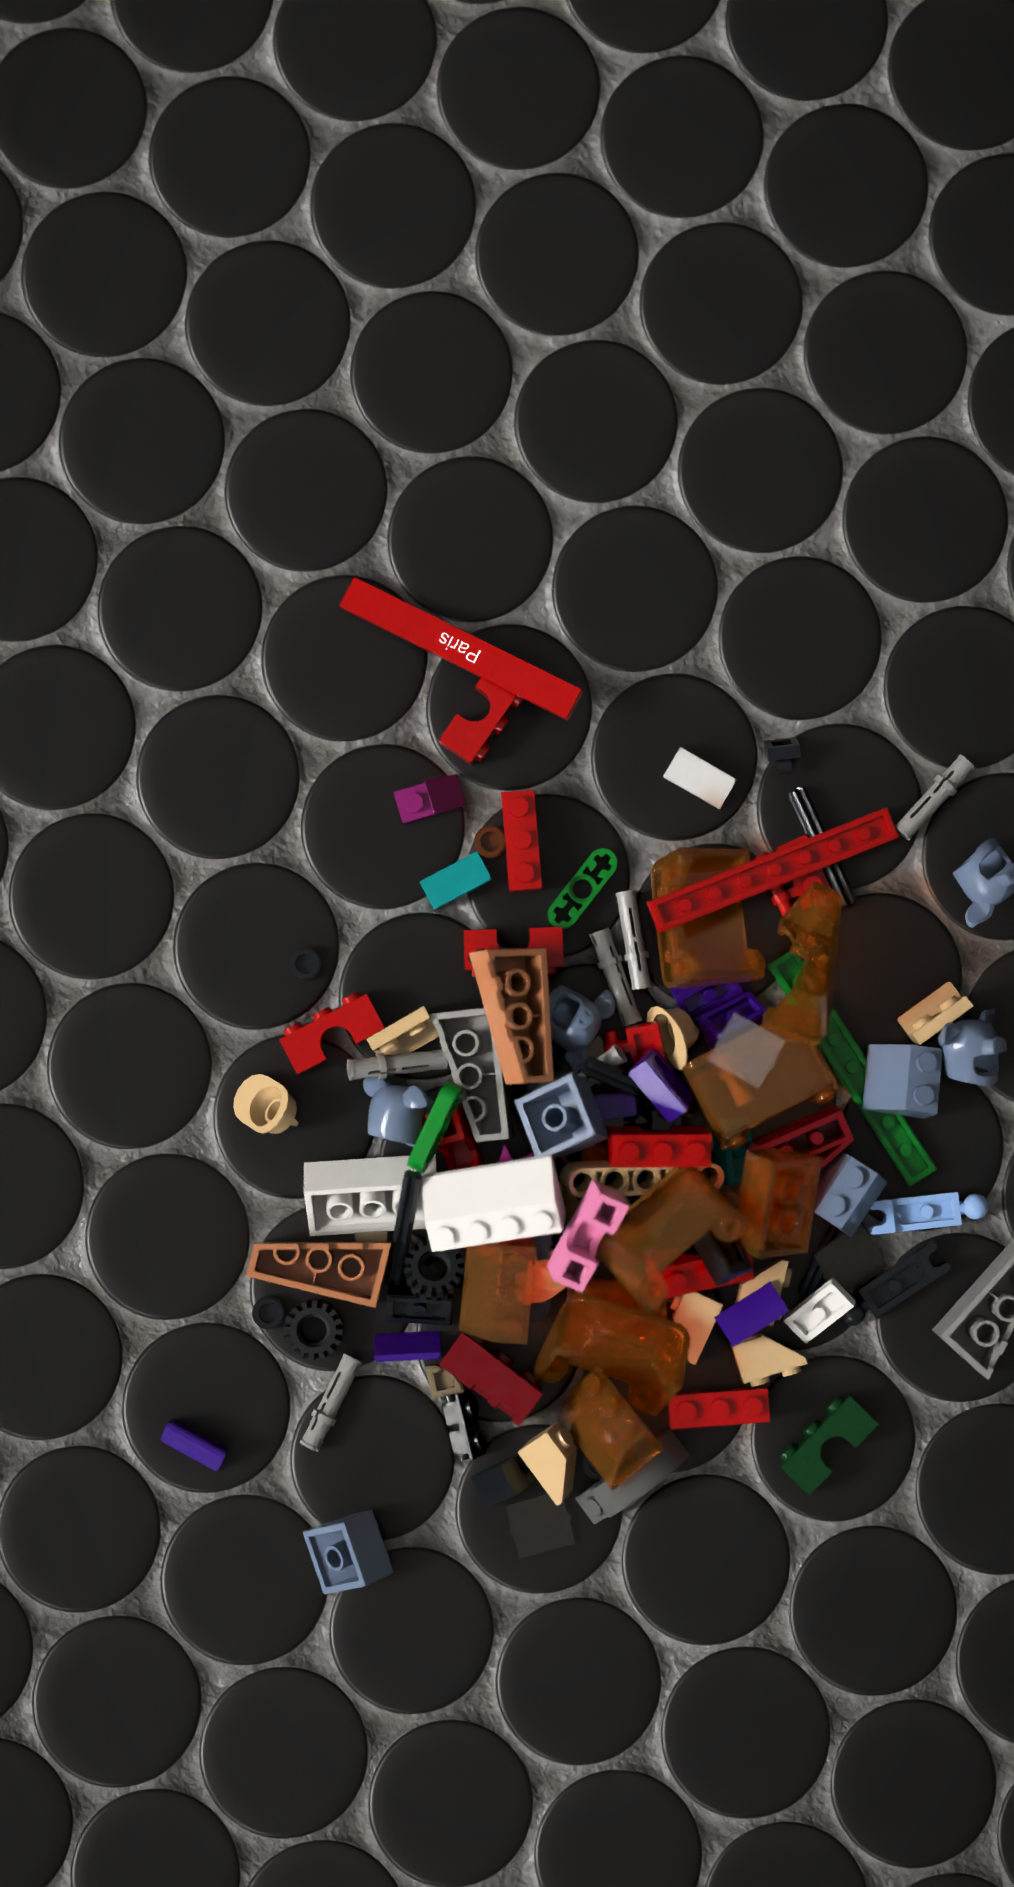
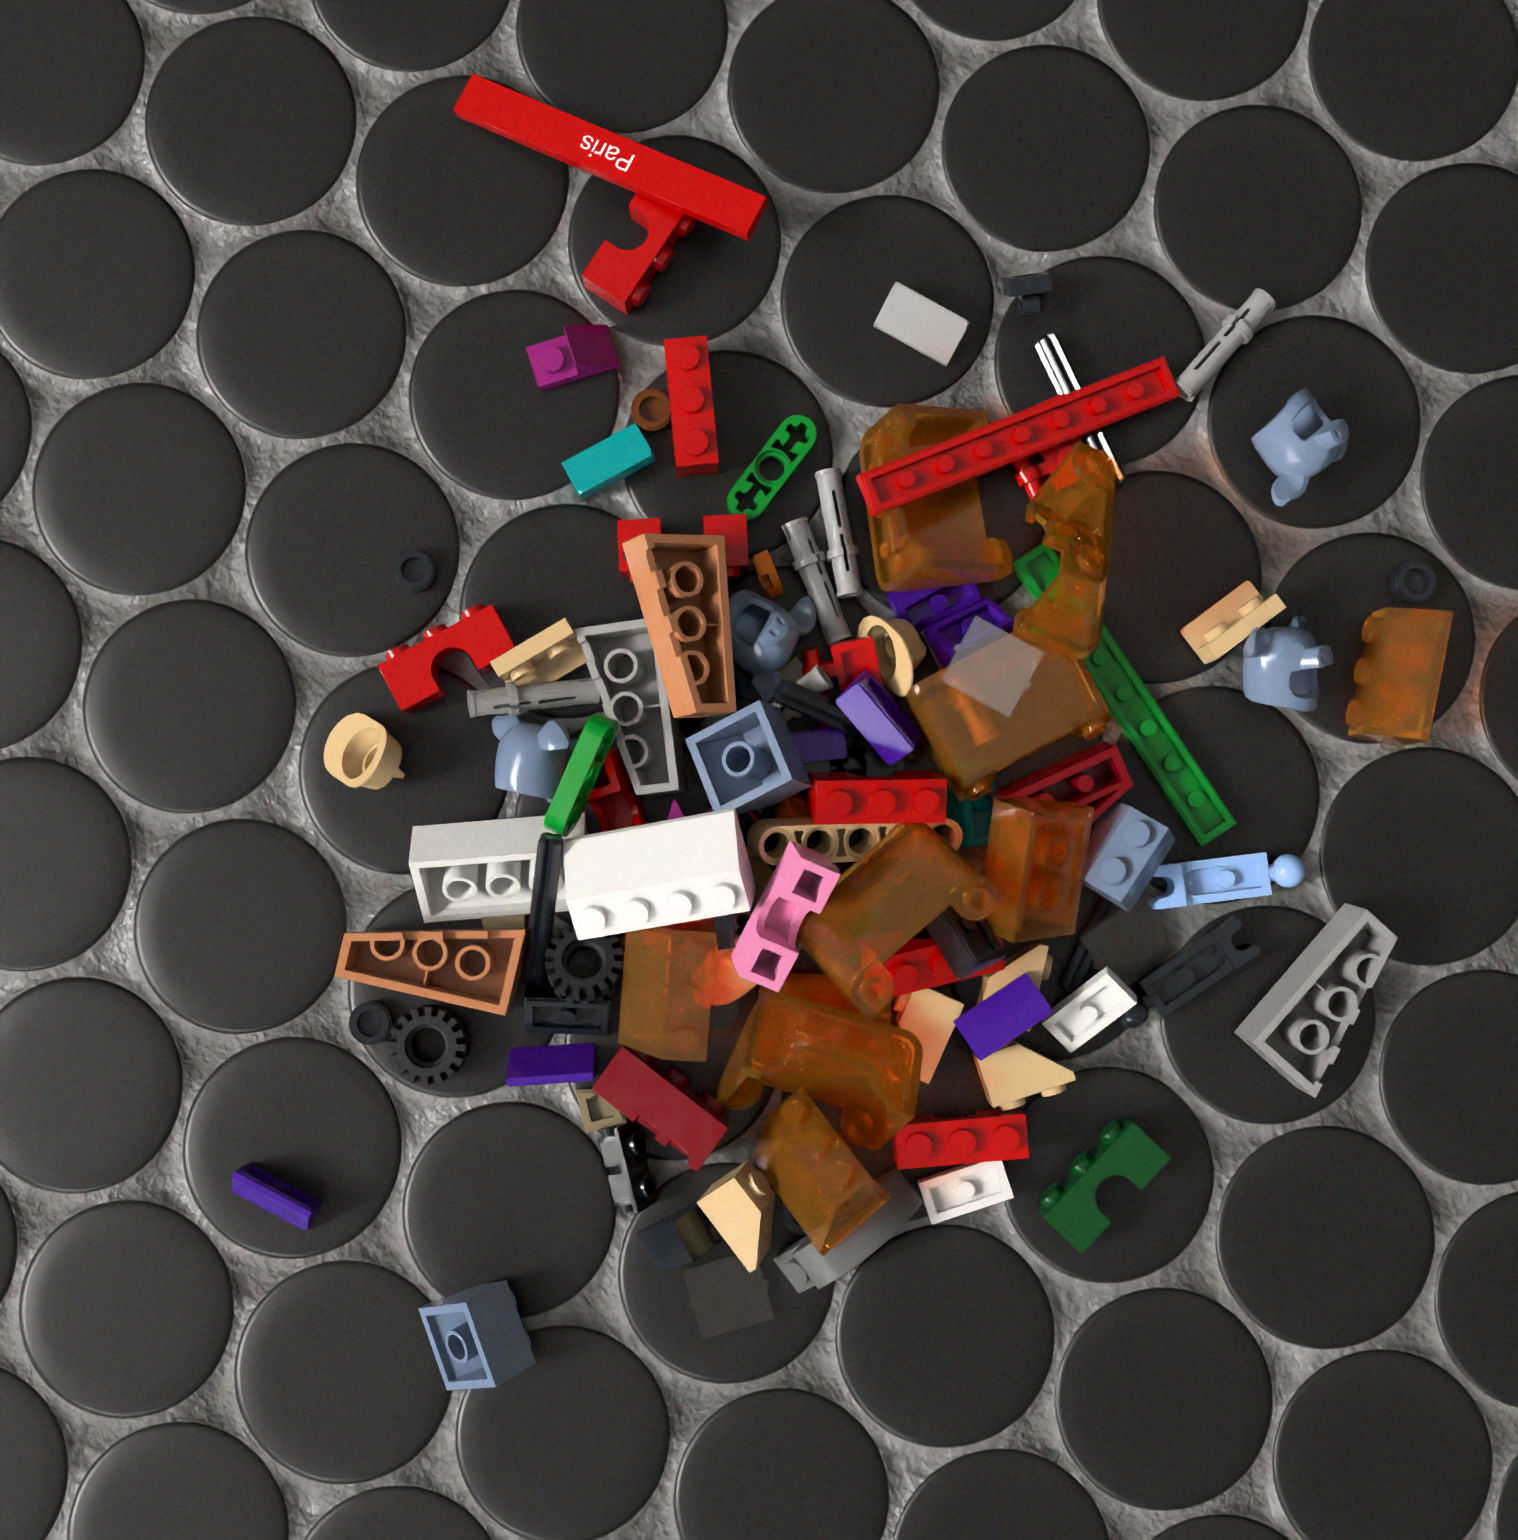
camera: 10 degrees left, 0 degrees up
(333, 1397) = (446, 1153): light grey pin -> none
(578, 972) = (767, 575): none -> orange tile
(722, 1446) = (964, 1189): none -> white plate
(902, 1079) = (1193, 707): sand blue slope -> none

